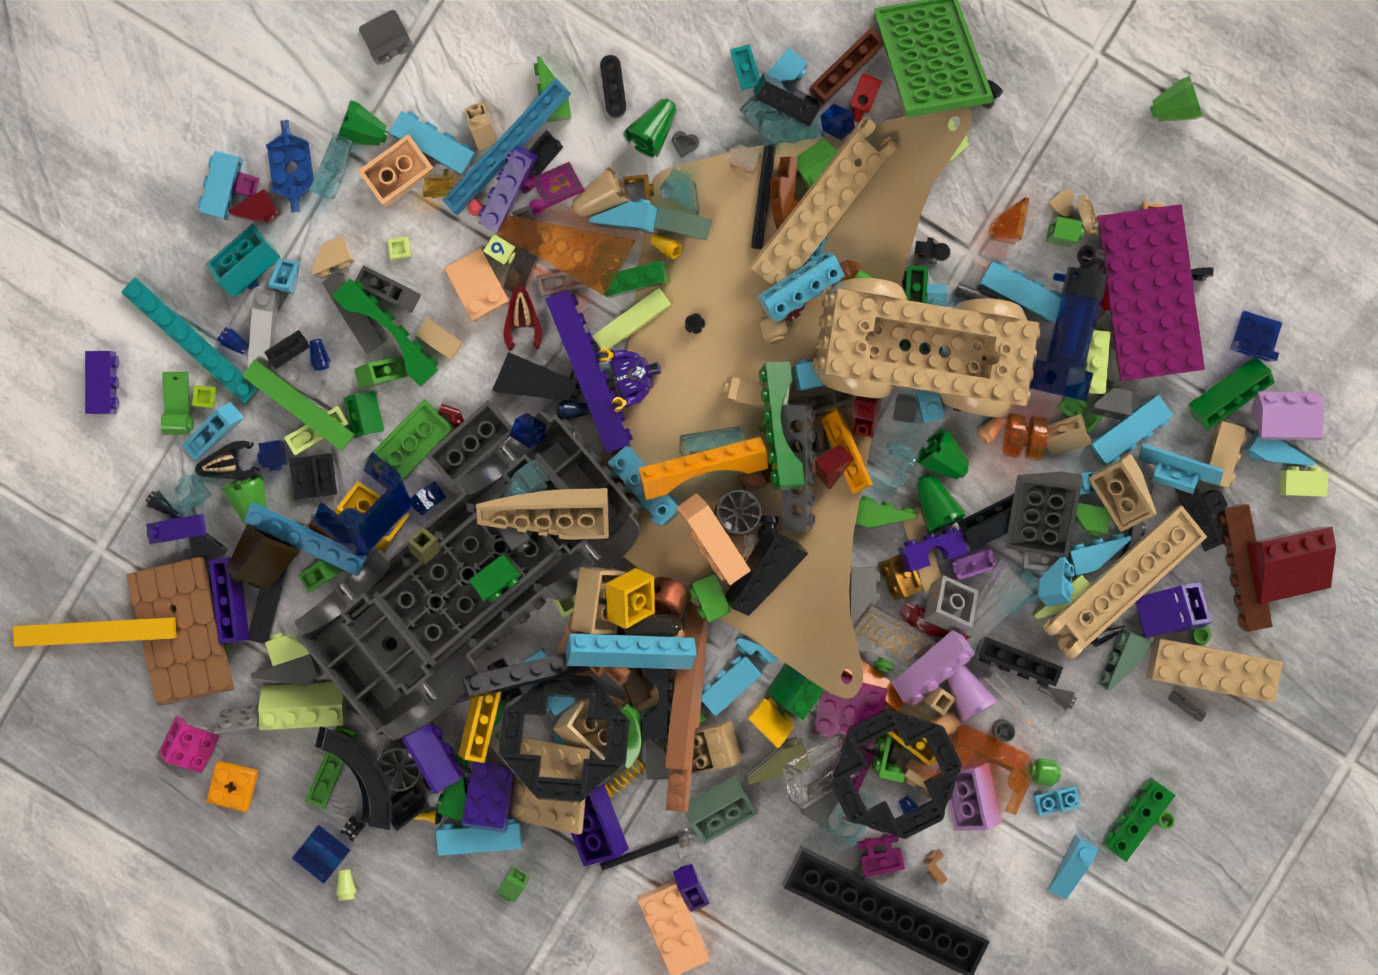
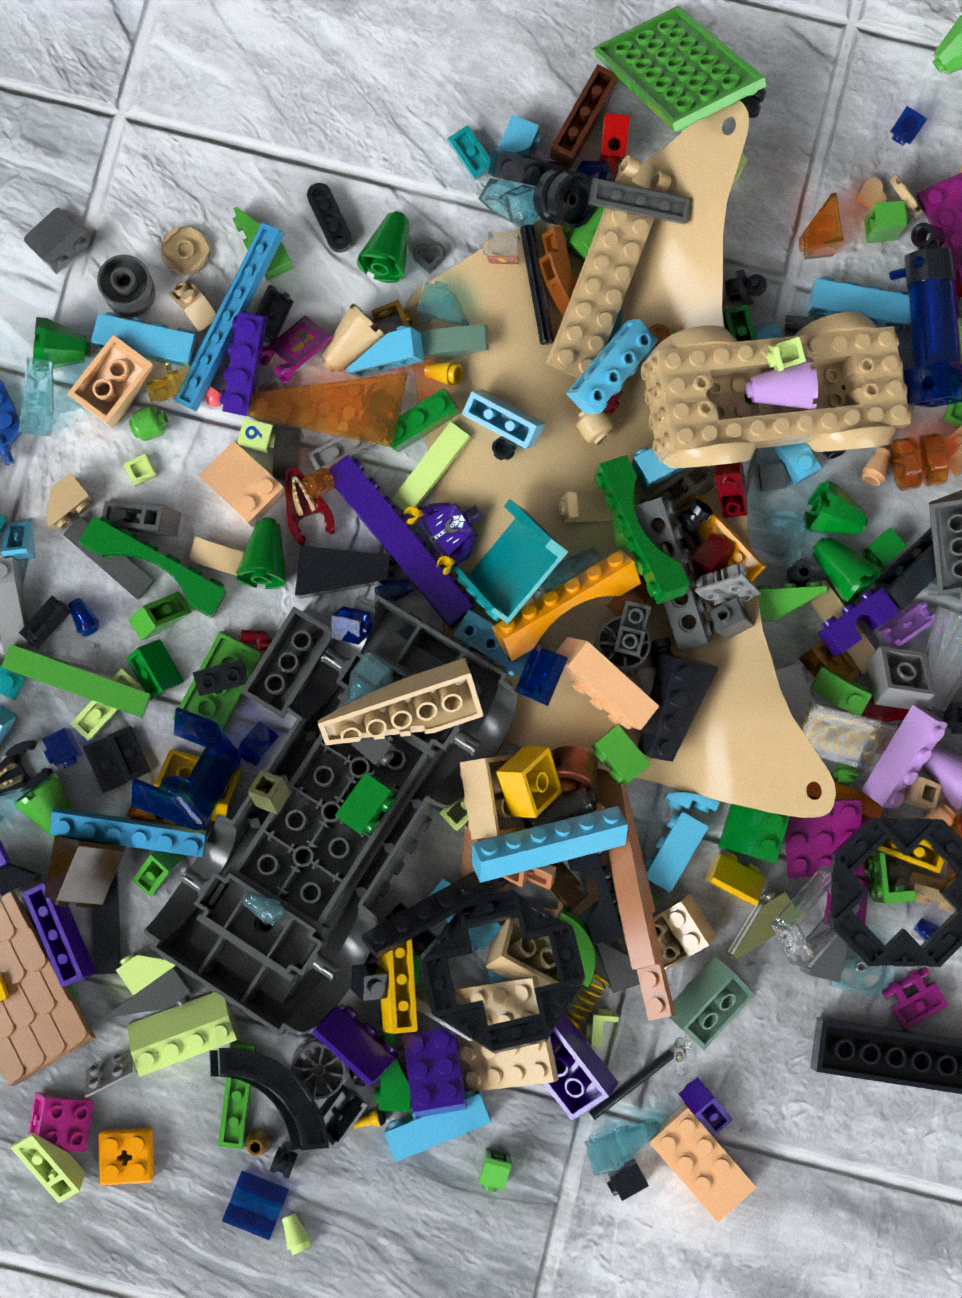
camera: 20 degrees left, 5 degrees down
(172, 776) = (51, 1166): none -> yellowish green slope
(341, 806) = (261, 1137): none -> pearl gold cone
(393, 634) = (265, 908): none -> clear light blue cone
(413, 438) = (220, 677): none -> black hinge
(416, 213) = (148, 423): none -> bright green head
(430, 94) = (126, 285): none -> dark grey wheel
(458, 713) = (369, 981): none -> black brick
(476, 350) = (263, 557): none -> green cone
(487, 77) = (185, 250): none -> tan tile
(537, 305) = (318, 483): none -> clear orange wheel
(609, 898) = (615, 1149): none -> clear light blue slope
(612, 923) = (627, 1180): none -> black brick
(623, 802) = (595, 1029): none -> yellowish green bracket
(664, 518) = (541, 674): none -> clear blue slope
(670, 423) = (513, 566): none -> teal panel
(701, 301) = (503, 418): none -> medium azure brick
(748, 503) = (632, 628): none -> dark grey slope
(807, 135) = (563, 198): none -> black wheel
(829, 426) = (695, 515): none -> black wheel
(831, 517) = (731, 618): none -> dark grey brick
(835, 491) = (732, 585): none -> light grey hinge
(864, 159) = (639, 201): none -> dark grey tile
(894, 497) = (794, 576): none -> black cone
(901, 601) = (841, 691): none -> bright green slope
(933, 346) = (792, 387): none -> lavender cone
(940, 322) = (785, 354): none -> yellowish green bracket
(974, 497) = (884, 547): none -> green brick
(1110, 156) = (907, 126): none -> clear blue bracket

